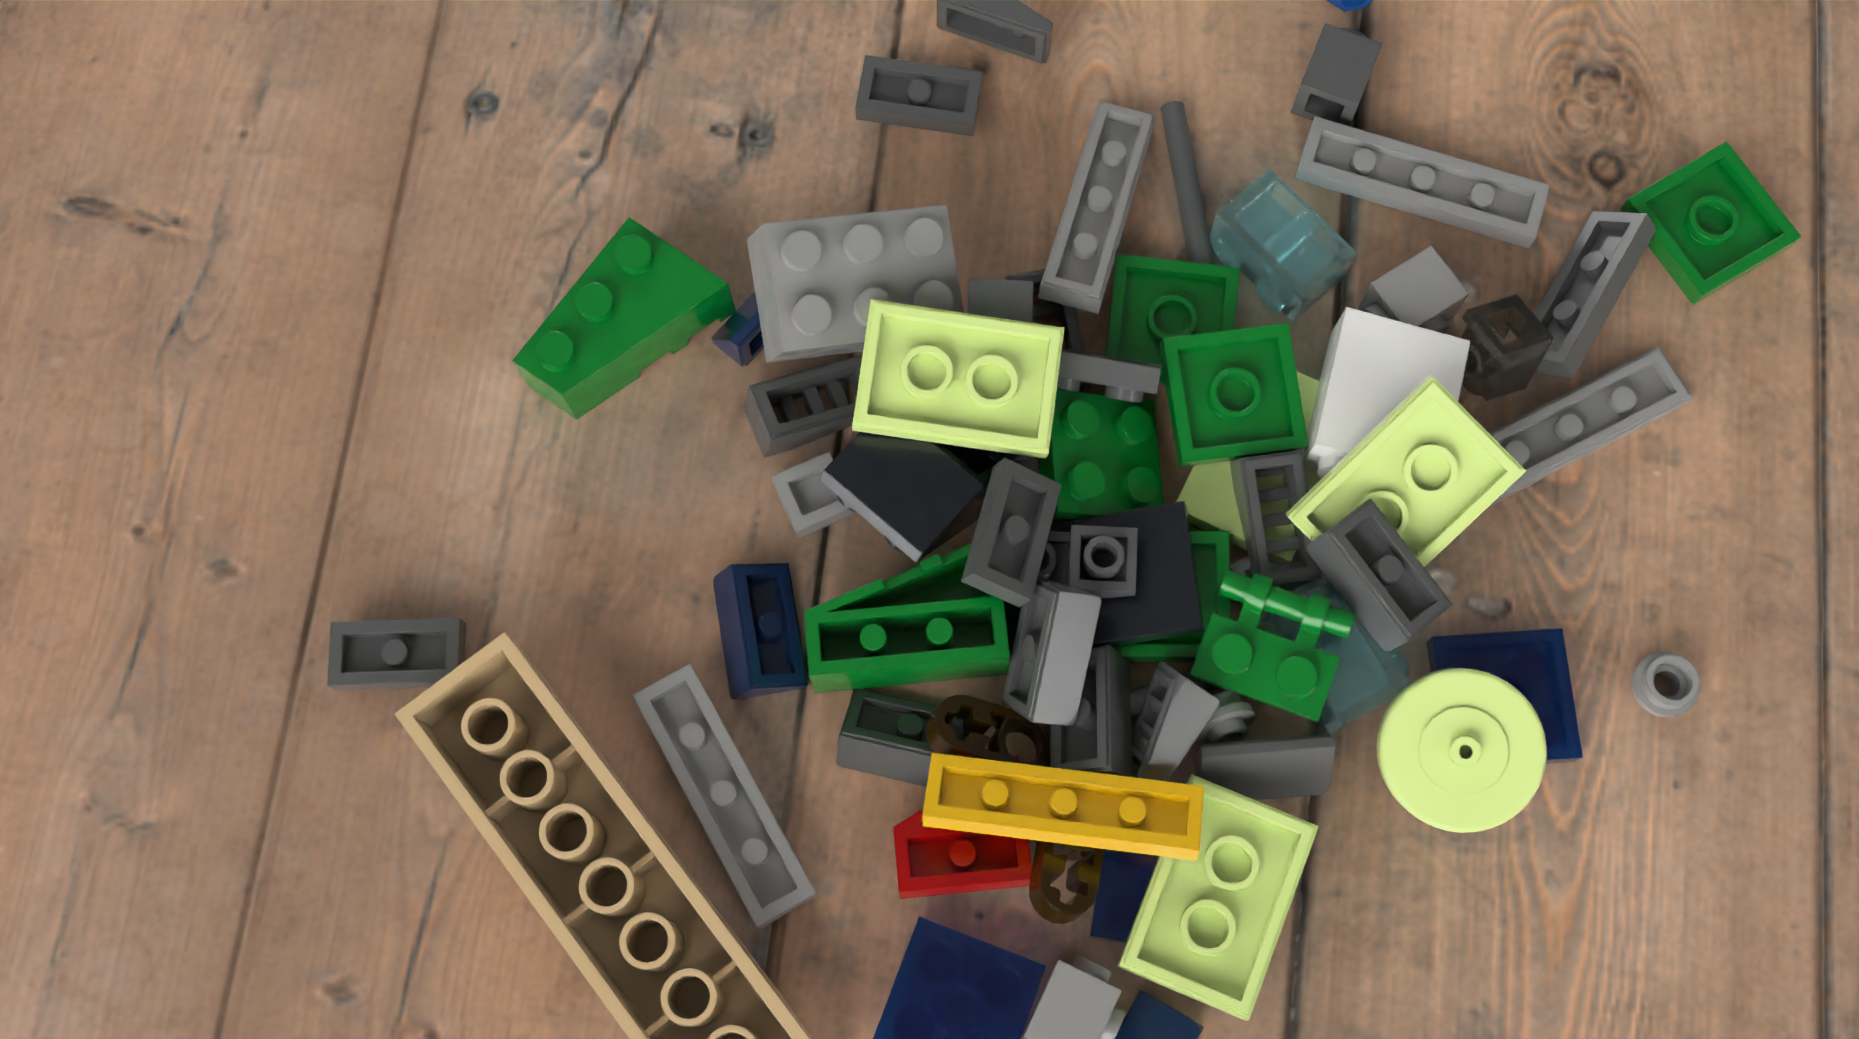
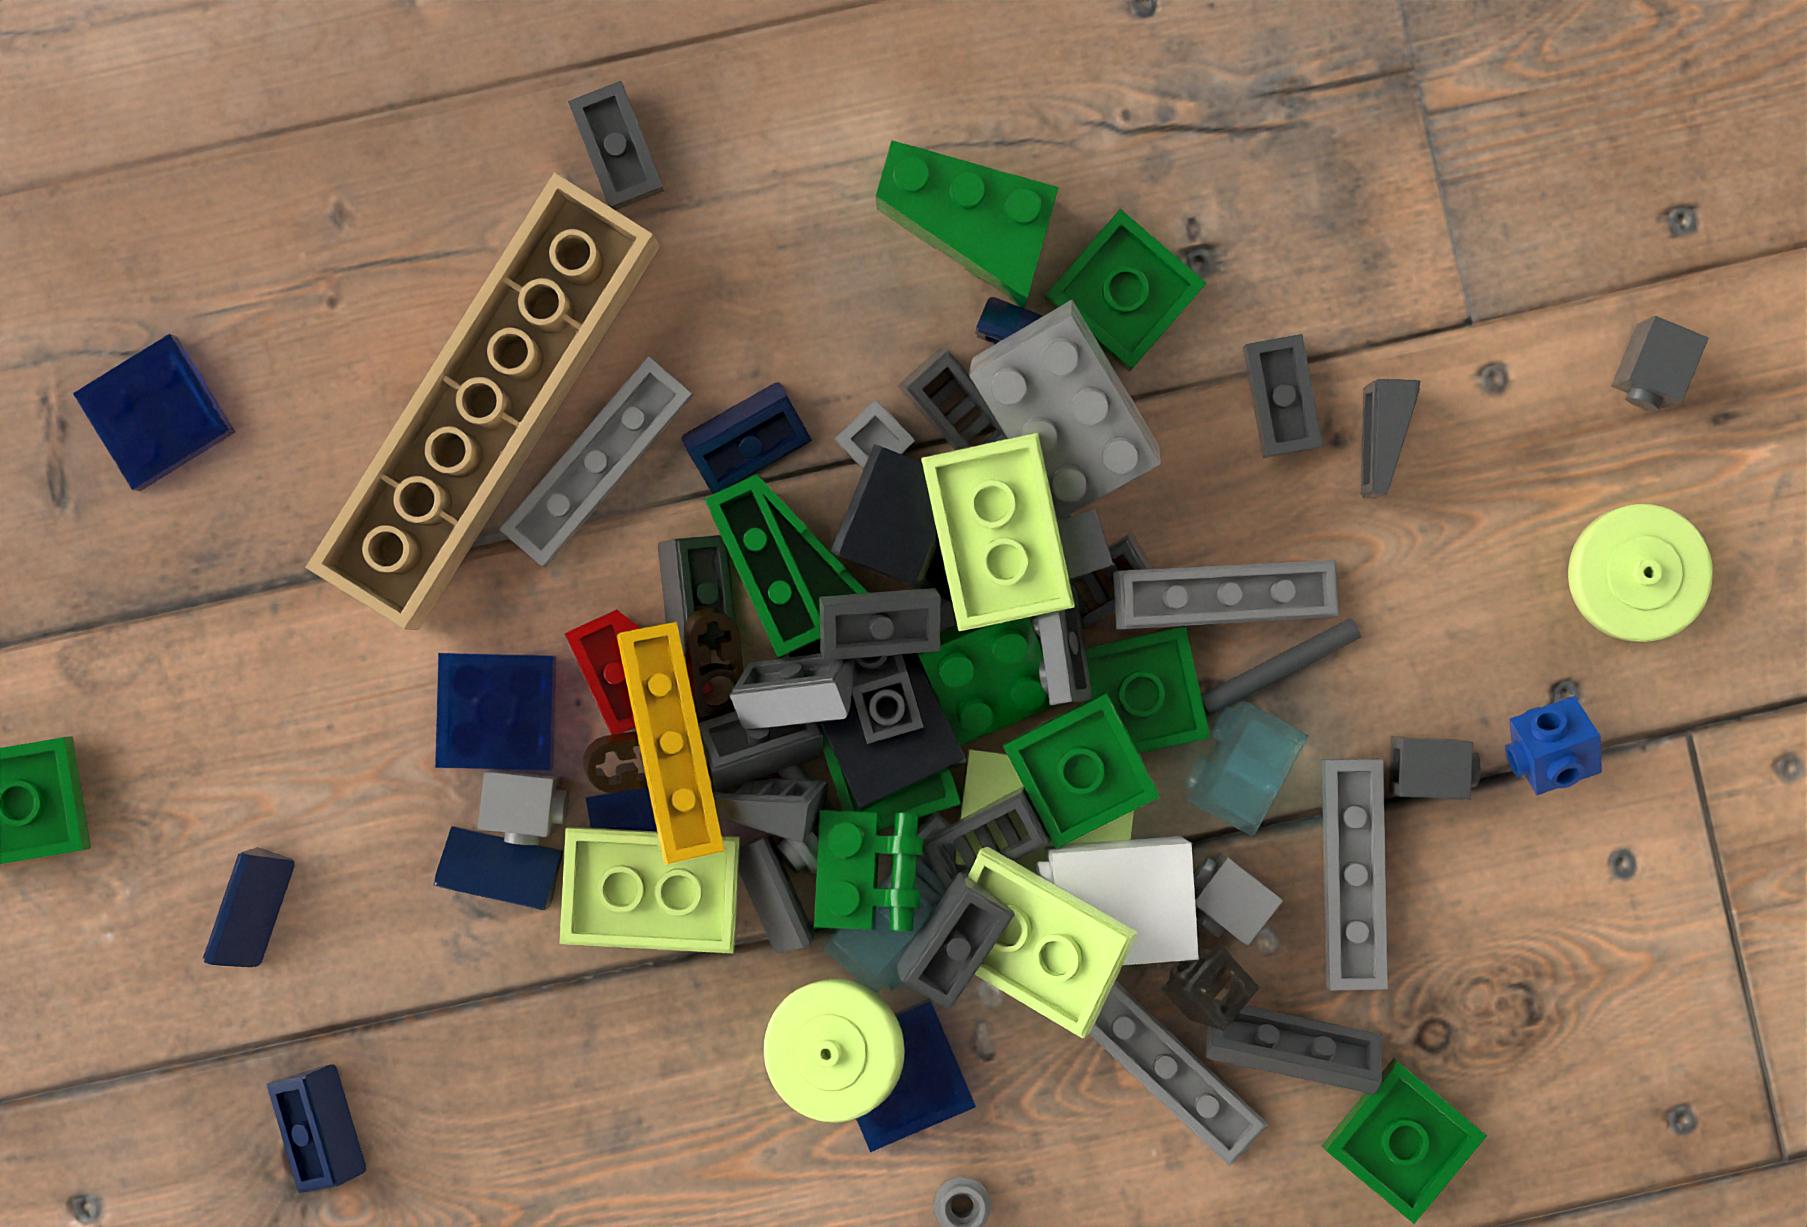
camera: 75 degrees right, 15 degrees up
(750, 187) = (1126, 289): none -> green plate

